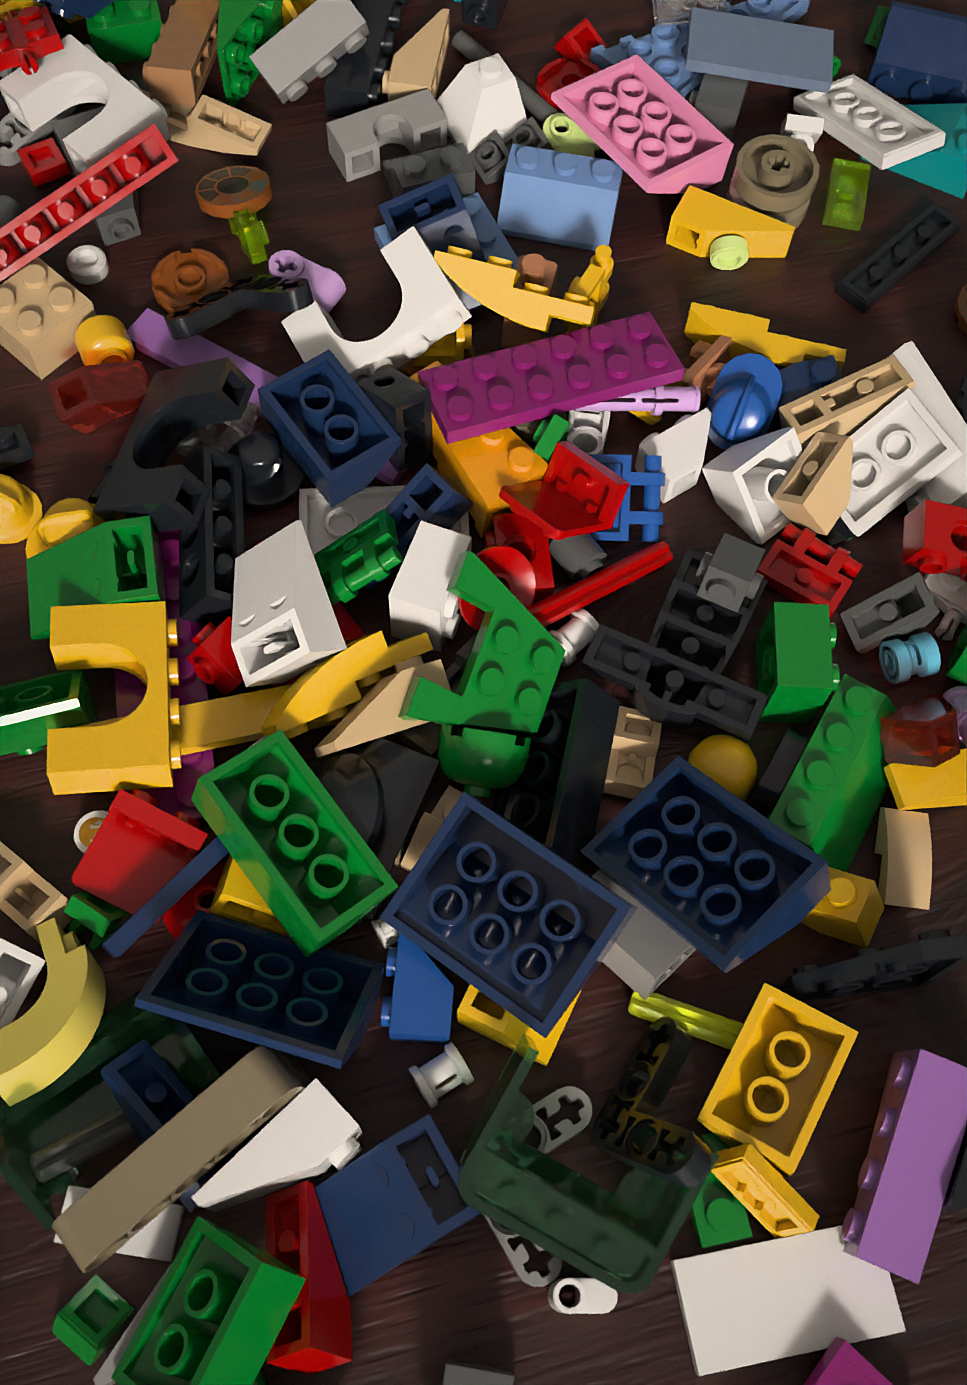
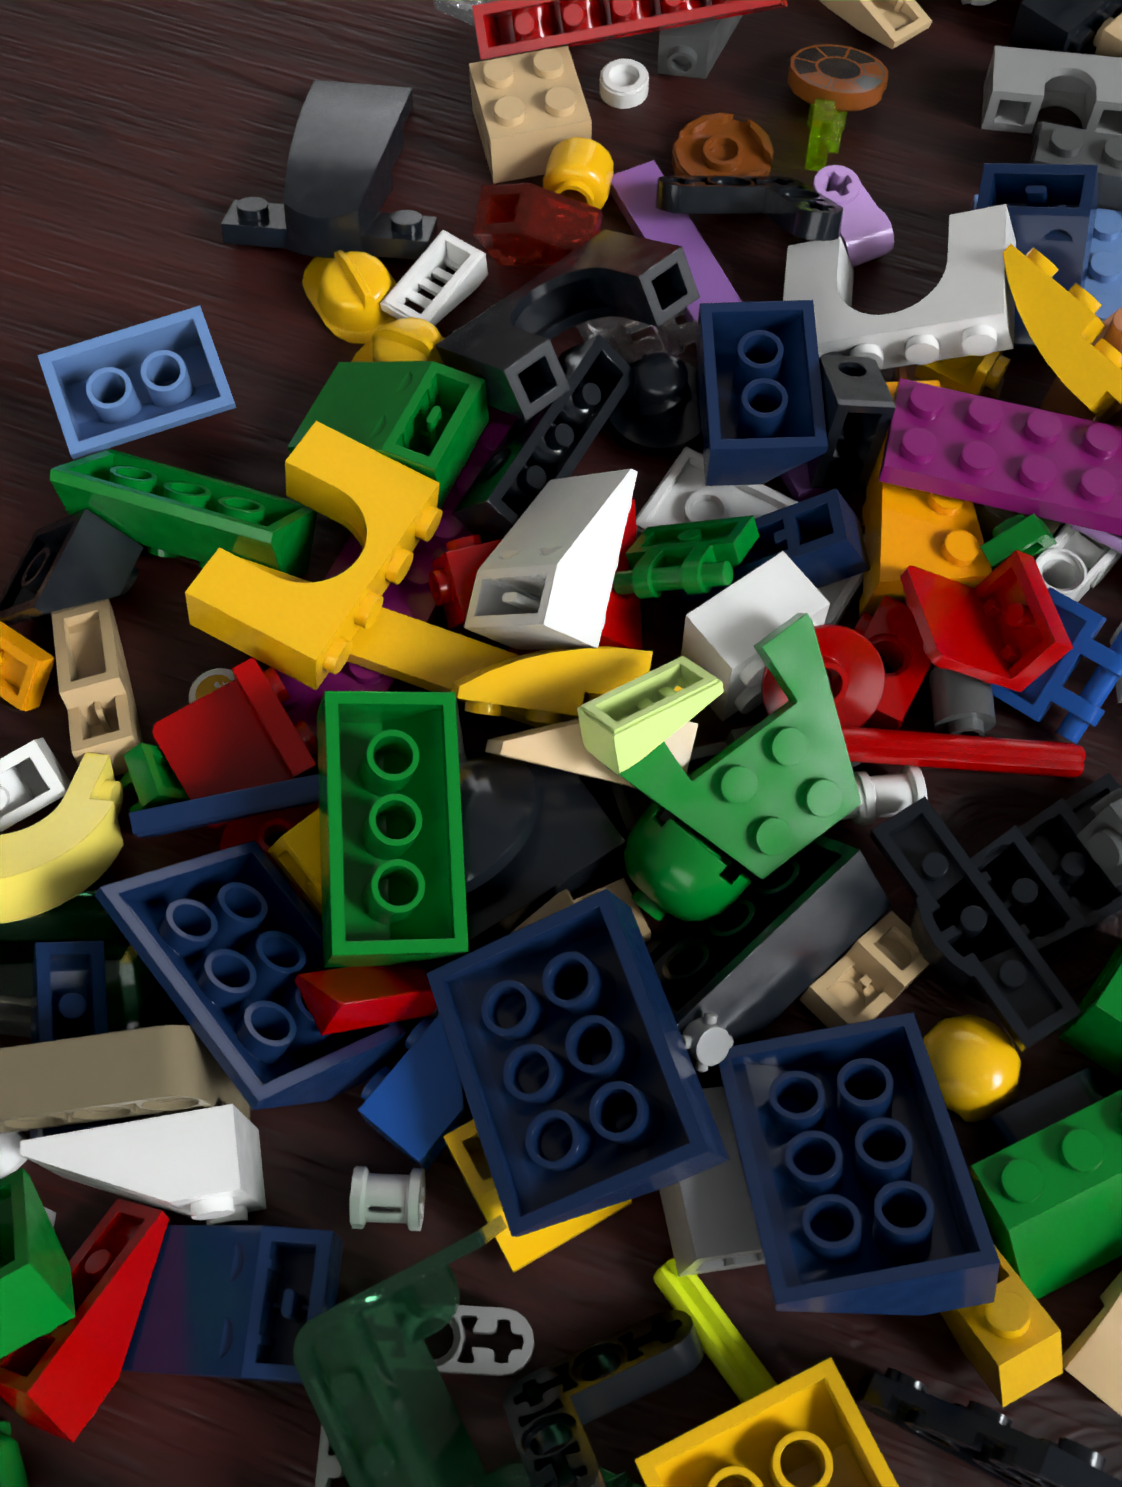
camera: 40 degrees right, 0 degrees up
(46, 443) = (442, 253): none -> white slope
(347, 957) = (366, 996): none -> red slope
(410, 696) = (645, 712): none -> yellowish green slope
(574, 848) = (706, 1041): none -> light grey piece

